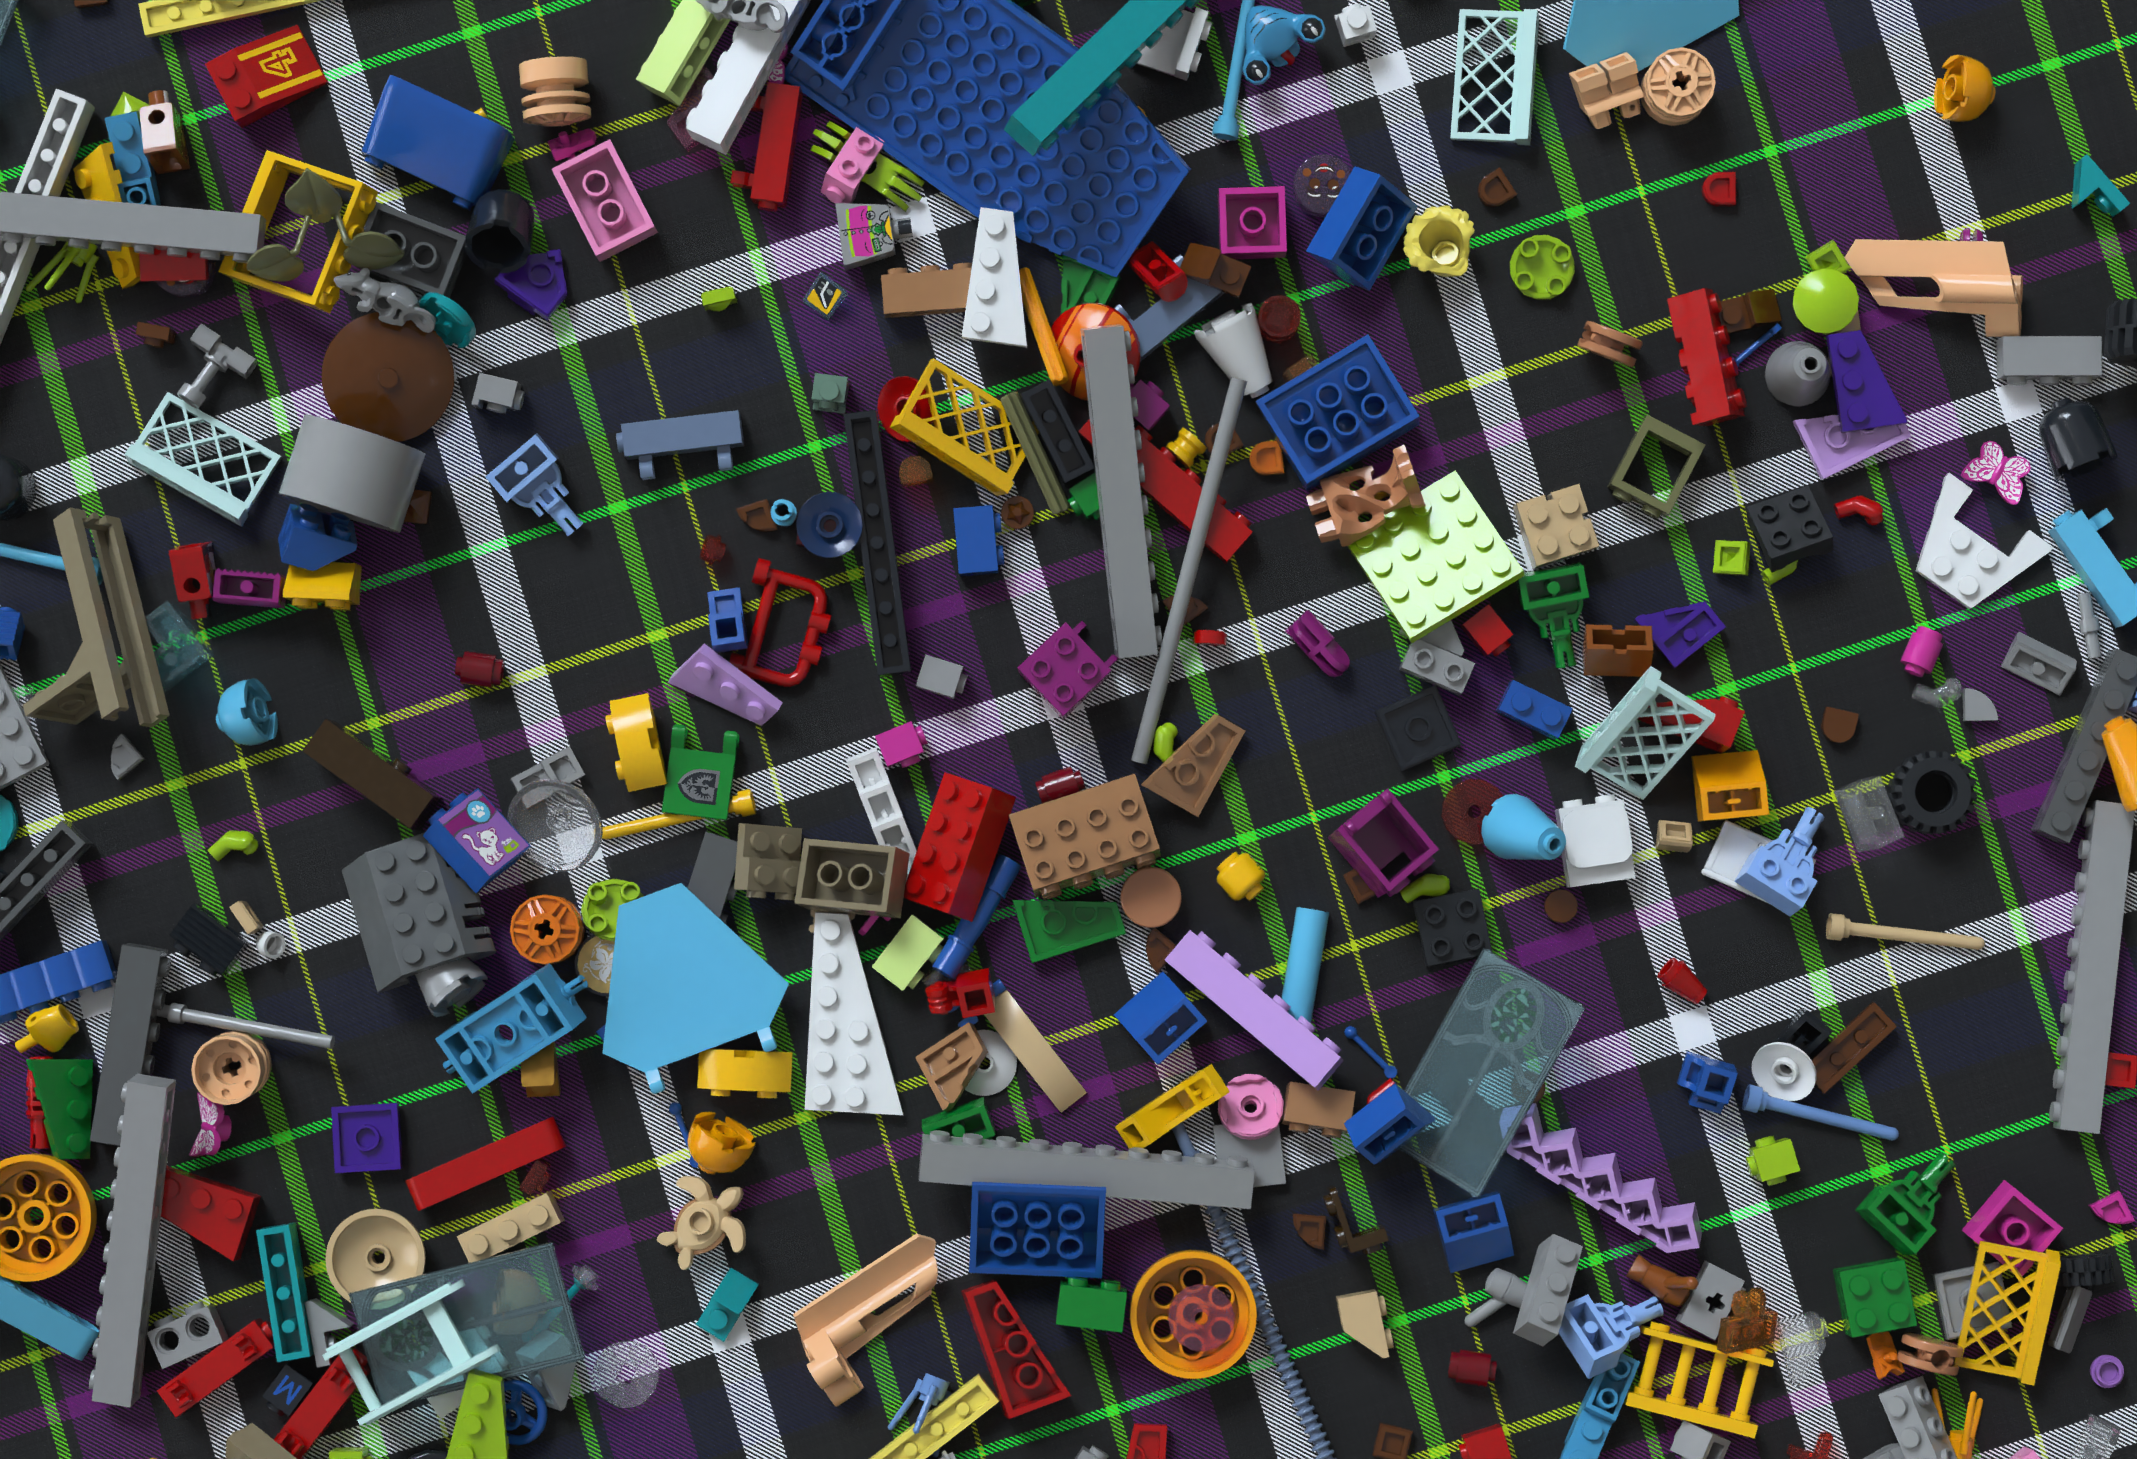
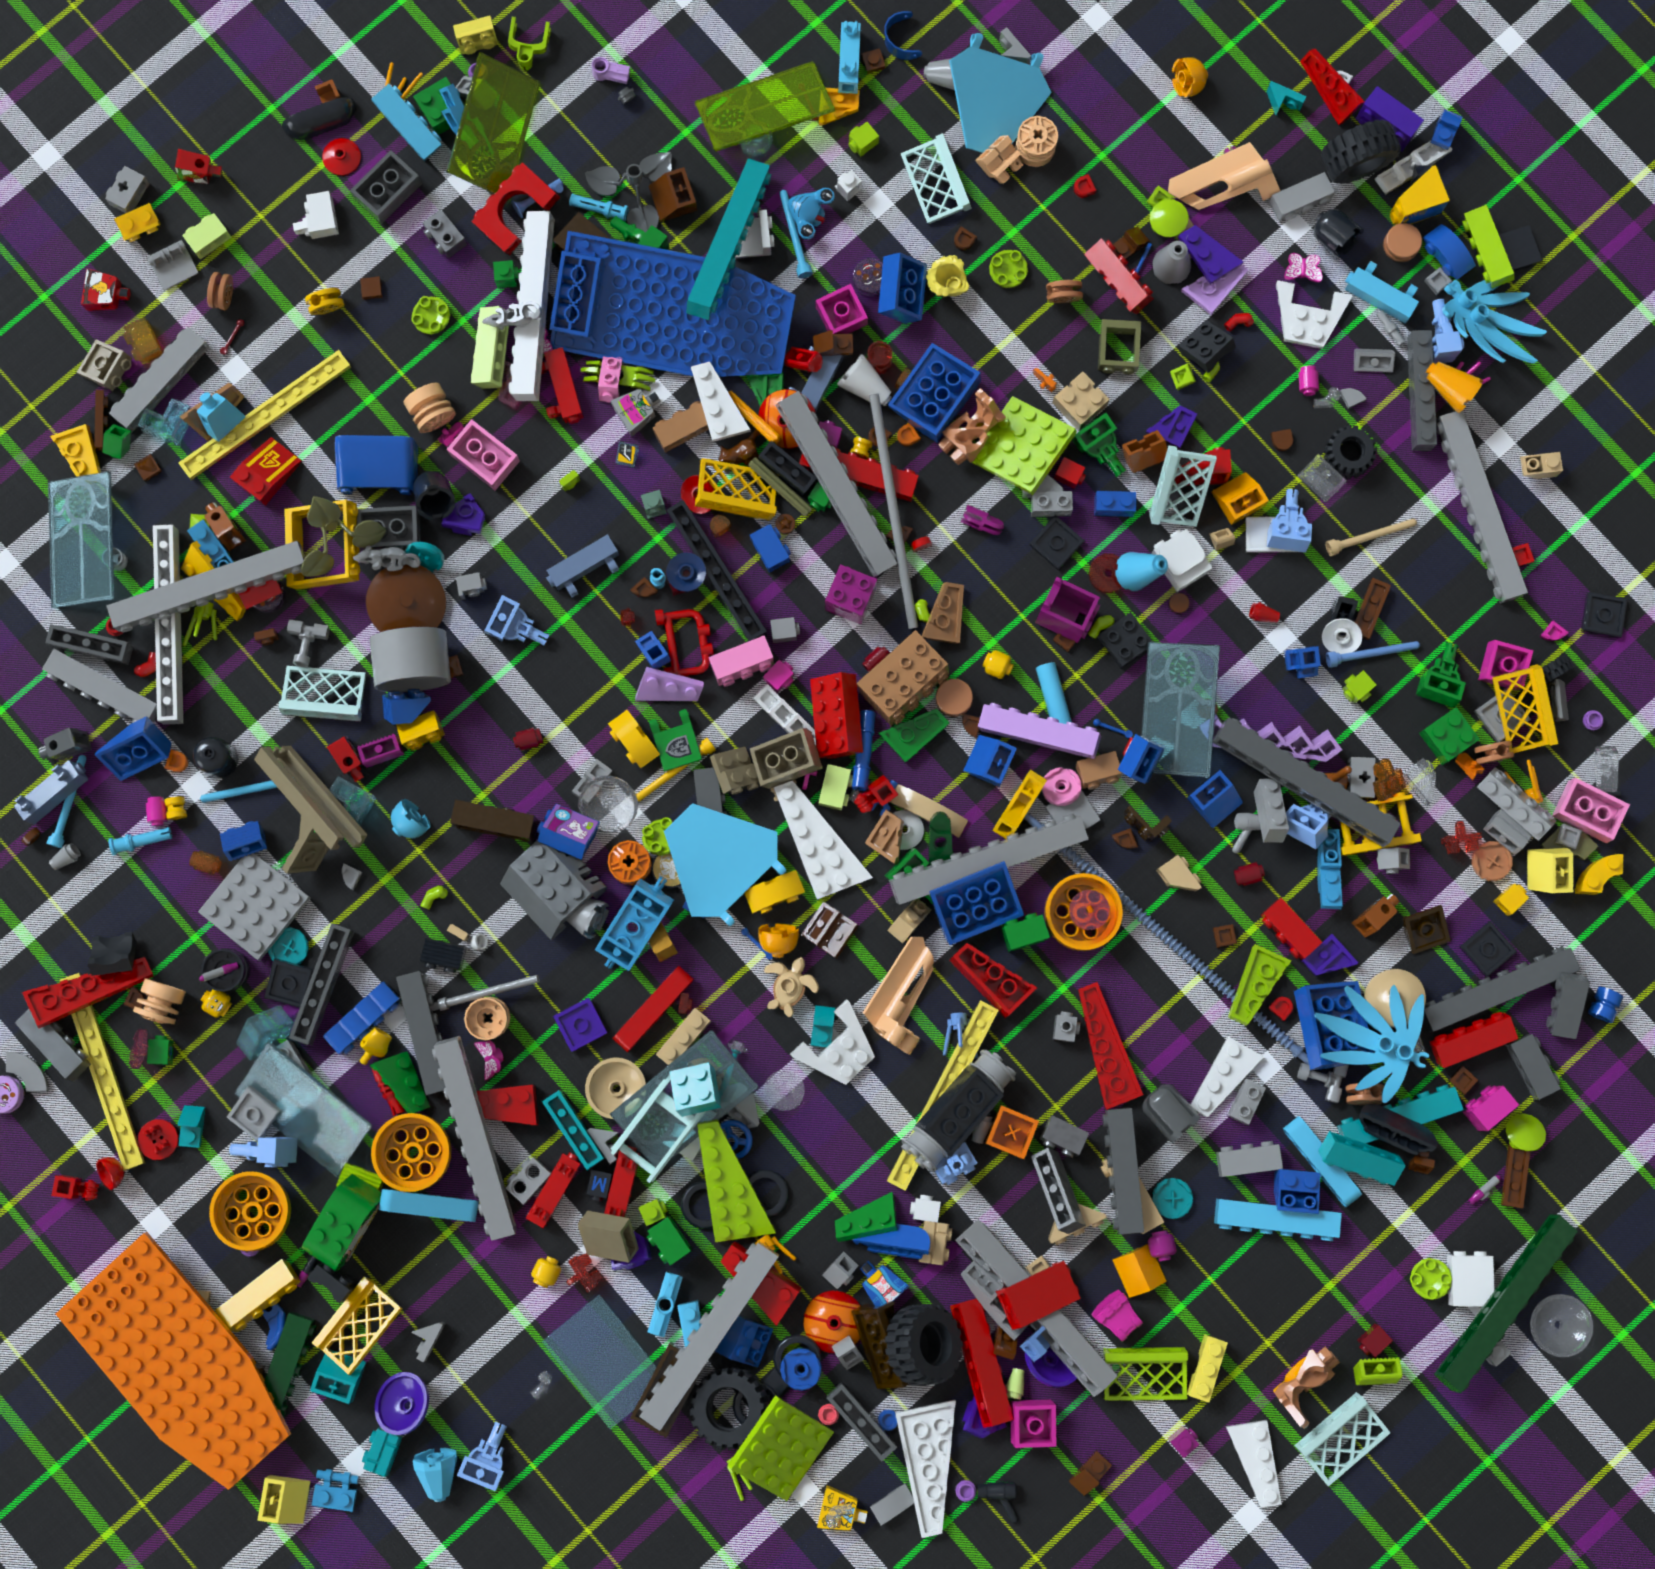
camera: 25 degrees left, 5 degrees down
(486, 1322) = (695, 1089): none -> brick
(740, 1362) = (845, 1055): none -> white wing
(803, 1164) = (829, 930): none -> slope
(853, 699) = (742, 661): none -> bright pink brick
(927, 1206) = (909, 920): none -> tan slope
(1003, 373) = (741, 453): none -> reddish brown animal
(1034, 1089) = (939, 827): none -> dark green piece
(1518, 471) = (1047, 382): none -> orange piece
(1620, 1273) = (1306, 782): none -> dark grey brick

